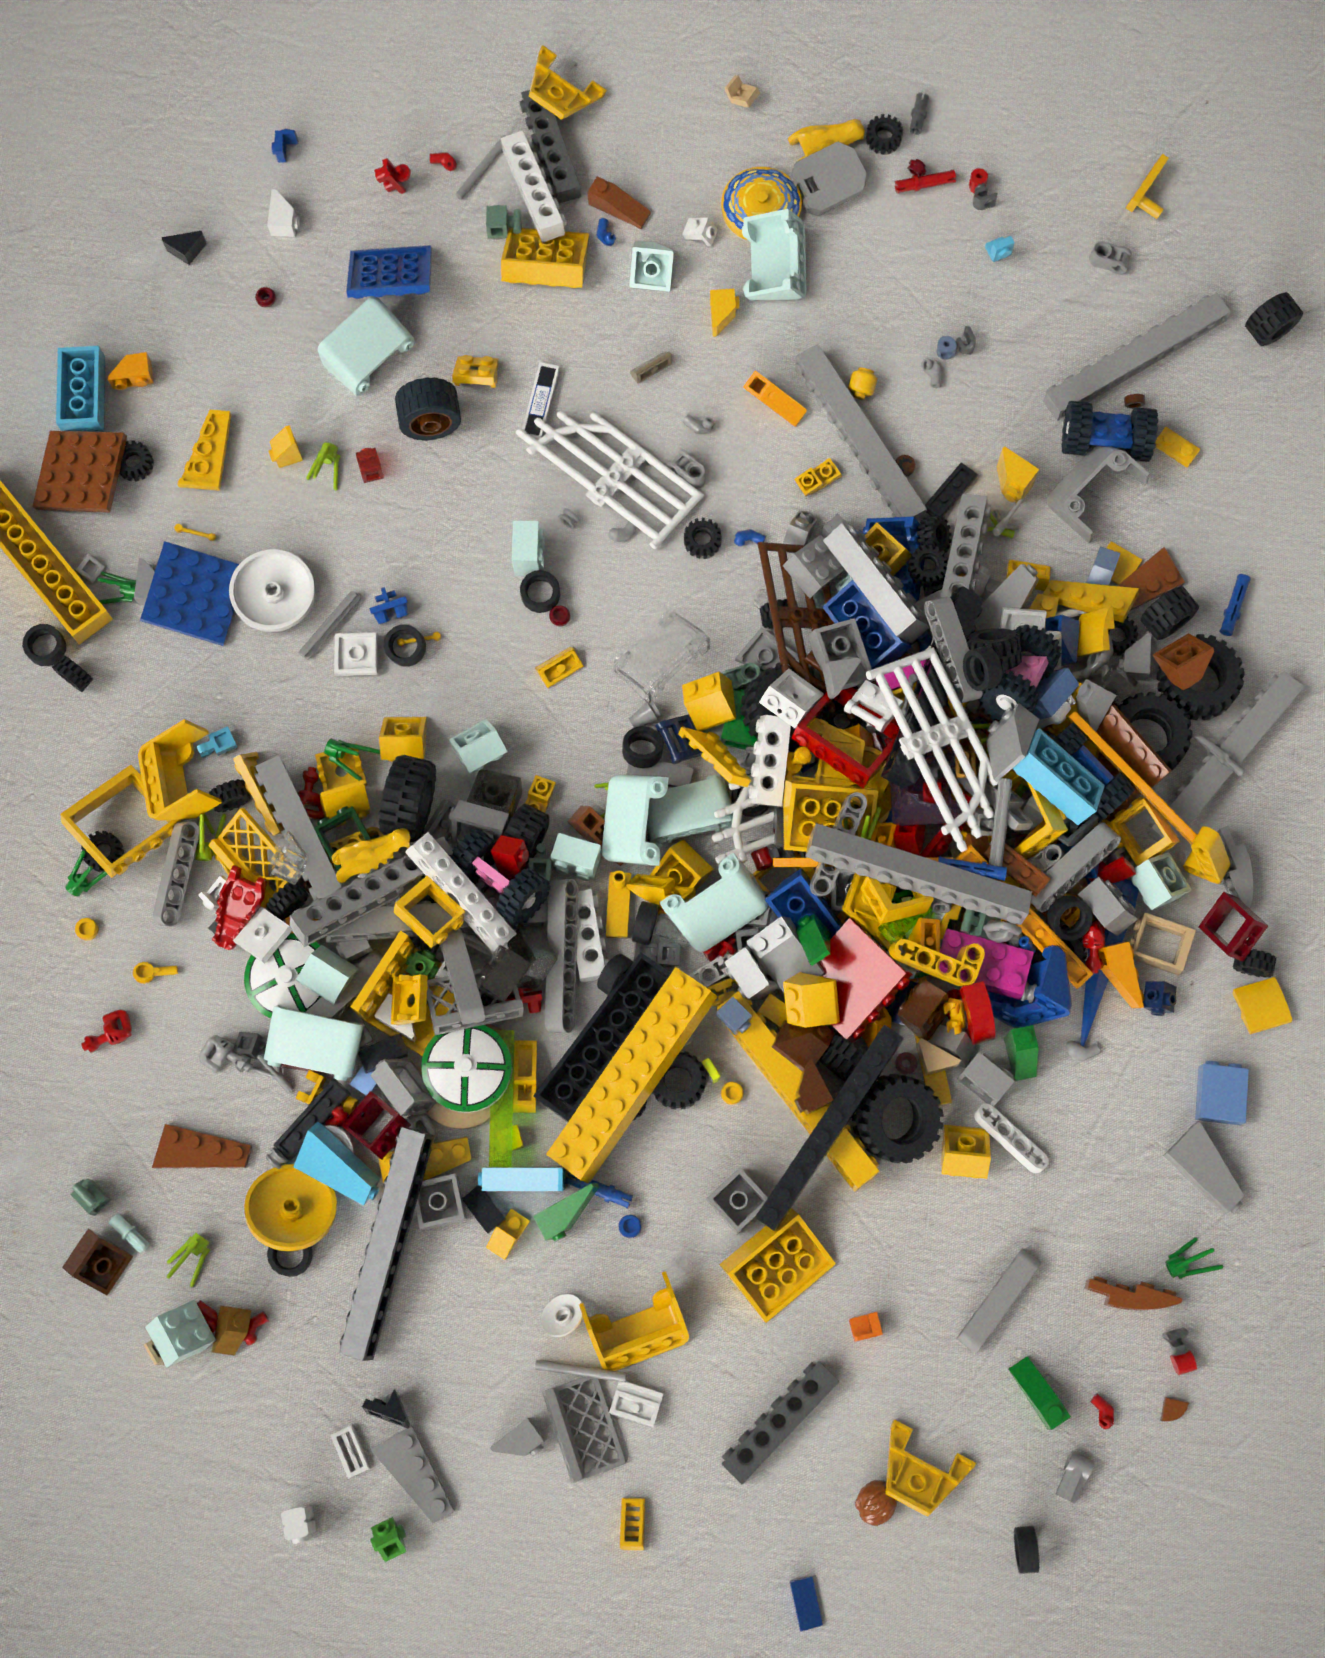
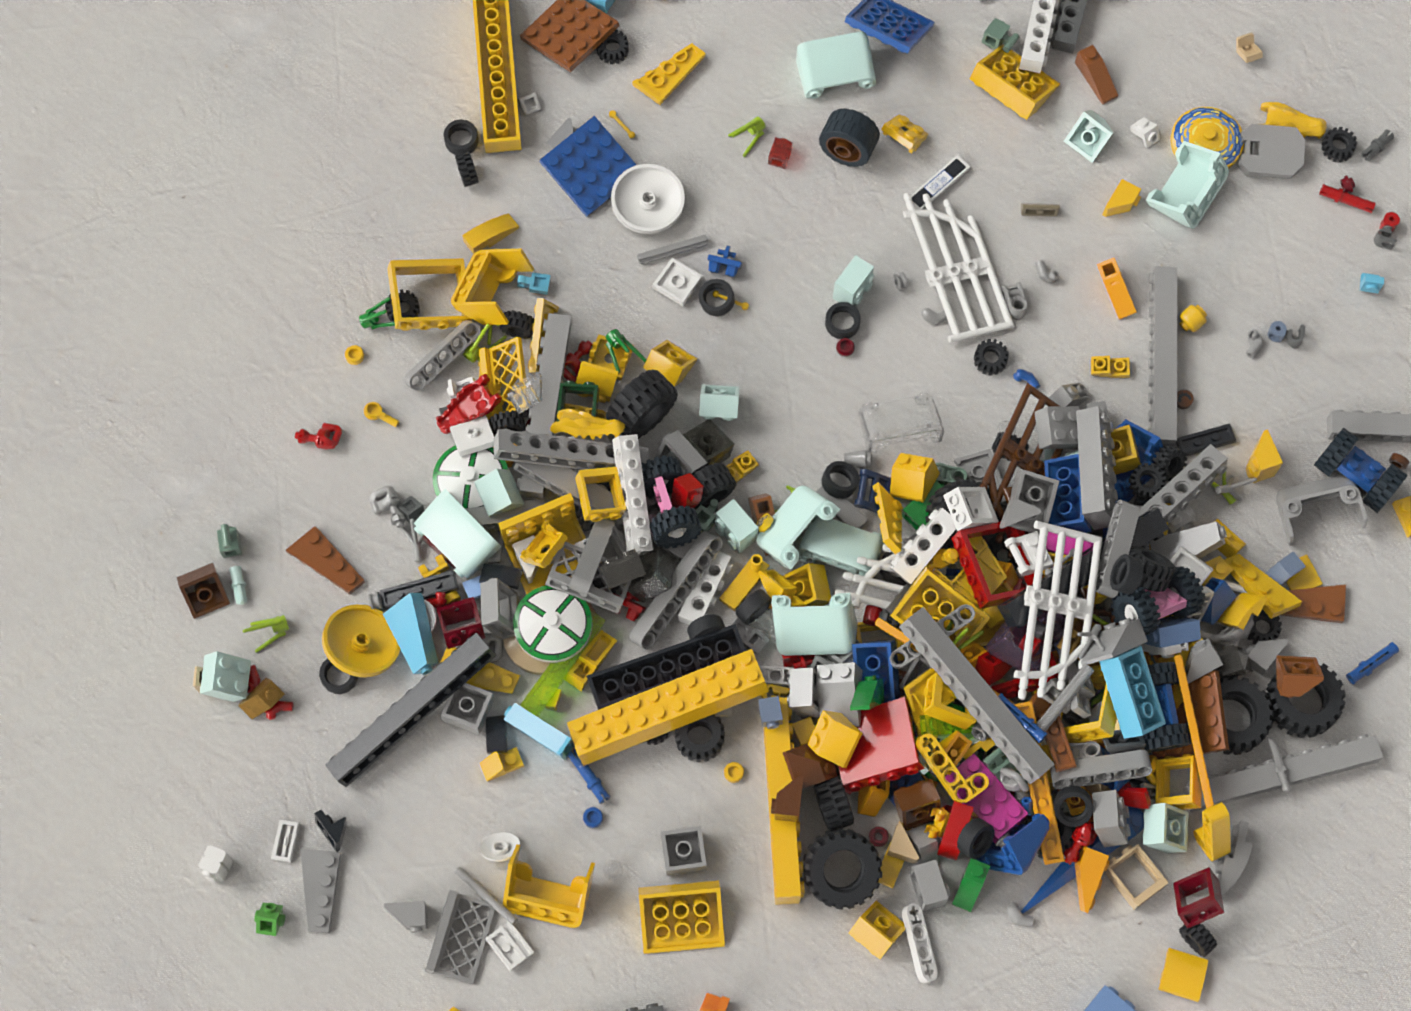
camera: 30 degrees right, 5 degrees down
(127, 587) = (546, 132): green plant -> none
(138, 722) = (489, 232): none -> yellow slope
(285, 448) = (727, 103): yellow slope -> none
(429, 962) = (576, 527): bright green brick -> none
(439, 822) = (654, 440): light grey slope -> none
(559, 667) = (819, 384): yellow slope -> none
(563, 1215) = (549, 776): slope -> none
(602, 233) = (1069, 90): blue arm -> none
(602, 835) = (764, 522): none -> yellow tile
(711, 1071) = (729, 744): neon yellow tile -> none
(829, 1128) = (784, 838): black brick -> none
(987, 747) = (1092, 636): none -> light grey plant
(1003, 1008) = (975, 838): none -> black tyre
(1159, 997) = (1105, 915): dark blue brick -> none
(1169, 613) = (1313, 634): black tyre -> none

